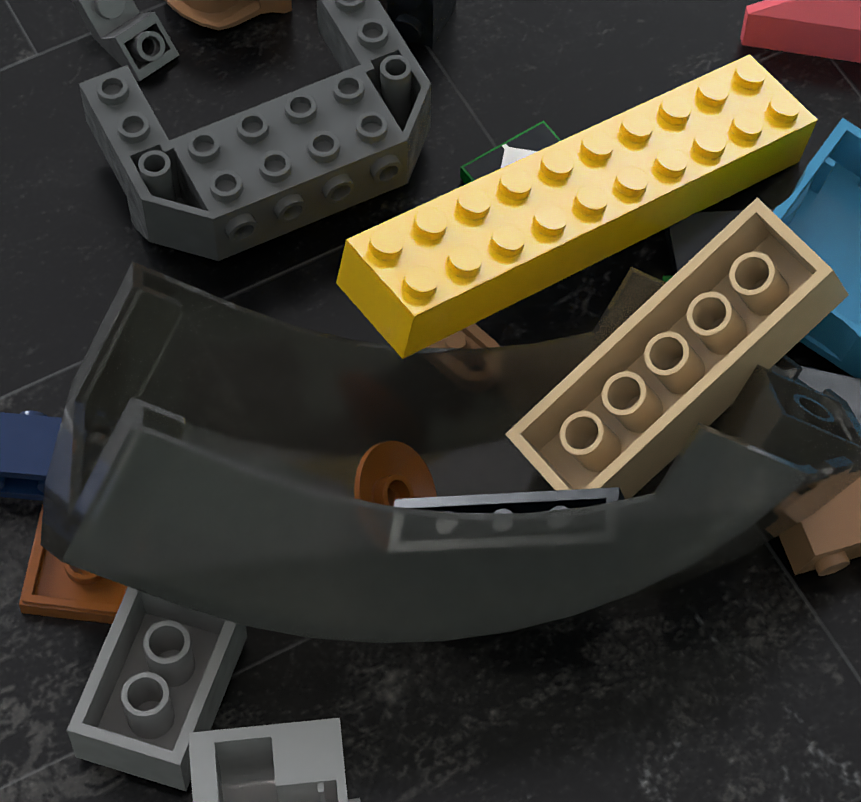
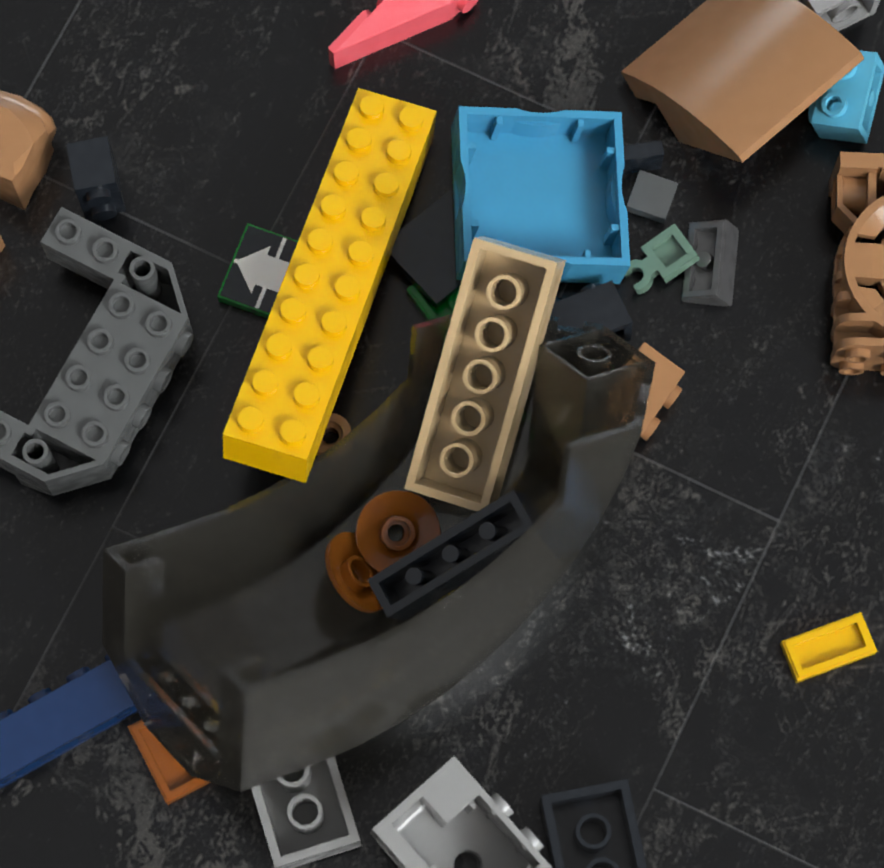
camera: 35 degrees left, 15 degrees up
(468, 459) = (393, 507): none -> dark orange dish

